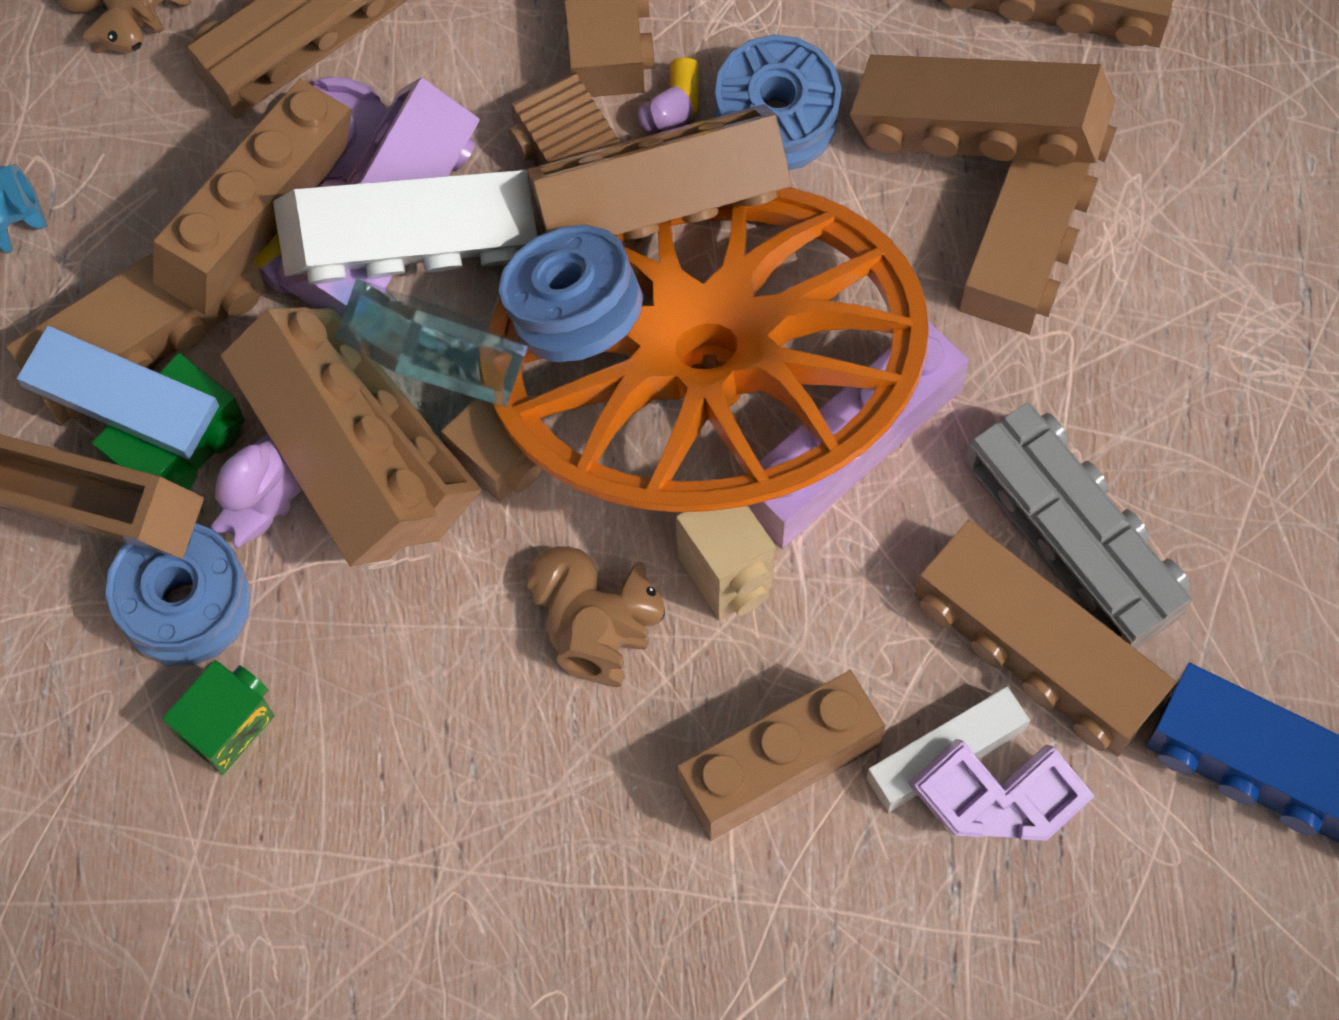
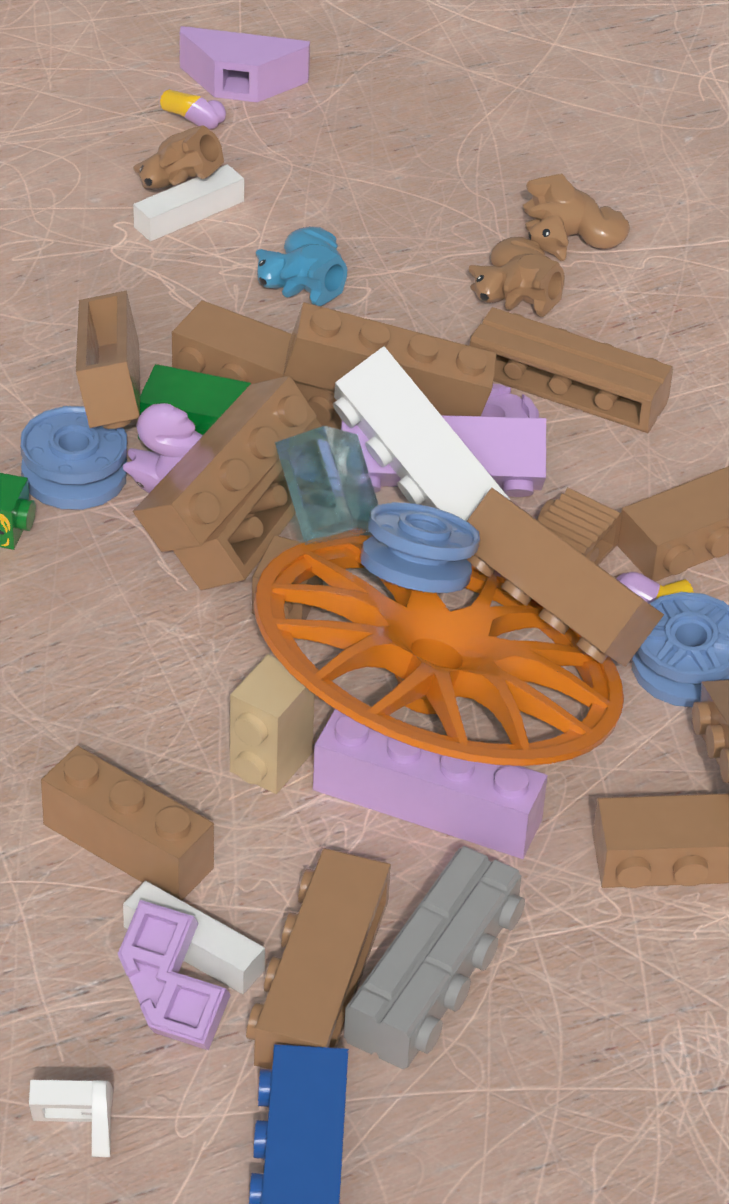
camera: 60 degrees right, 25 degrees down
(118, 392) = (197, 358): light blue tile -> none
(588, 623) = (184, 683): medium nougat animal -> none
(1128, 951) = (75, 1103): none -> white tile

